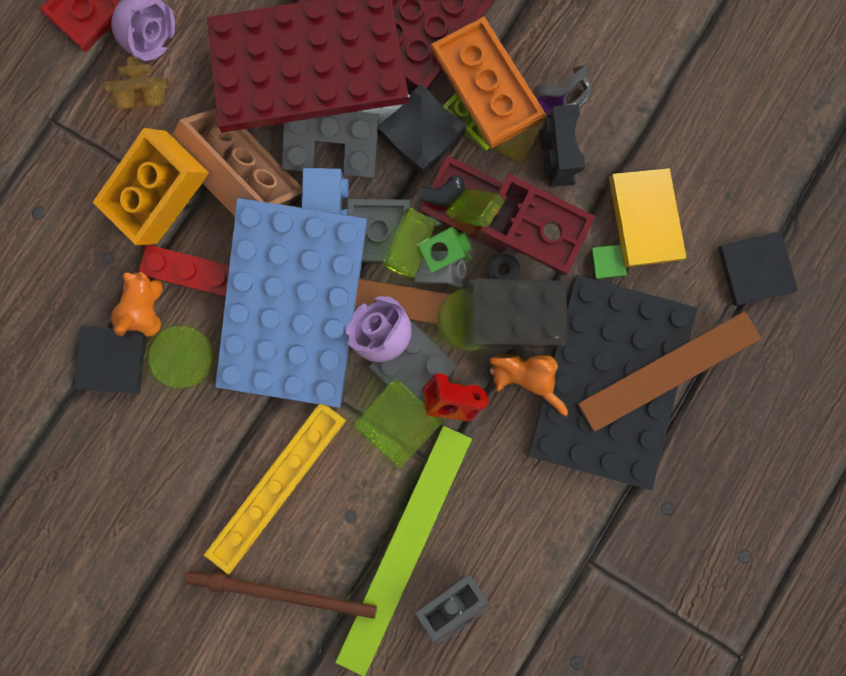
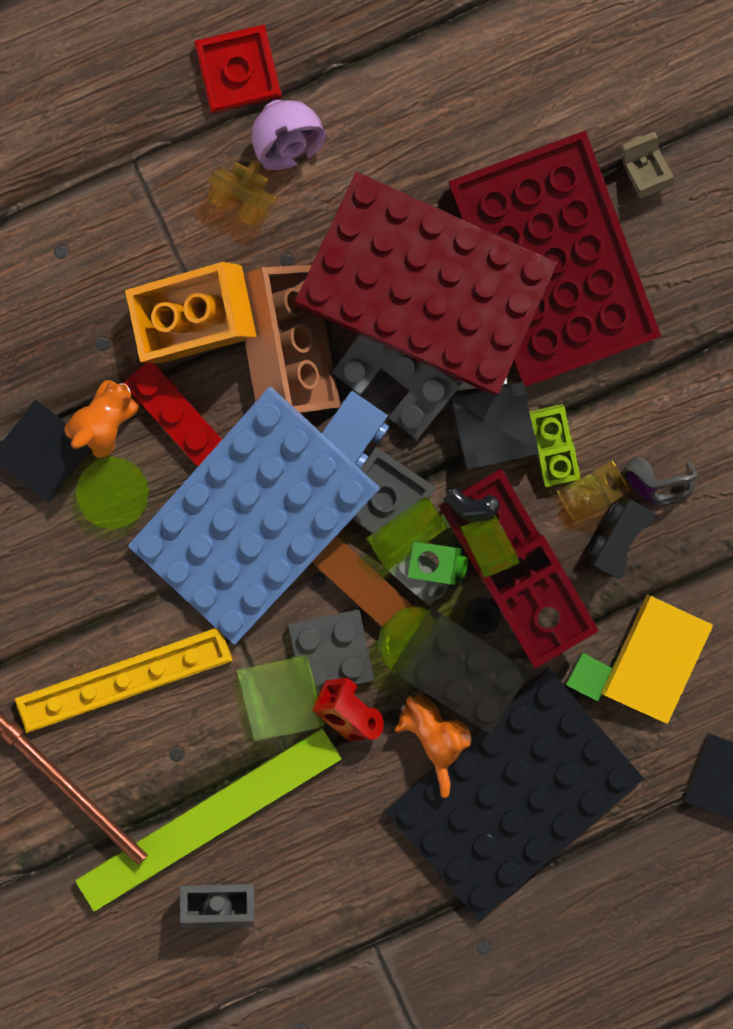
camera: 35 degrees right, 5 degrees up
(379, 330) = (320, 601): lavender cylinder -> none
(488, 82) = (589, 424): orange tile -> none
(669, 371) = (571, 821): dark orange tile -> none

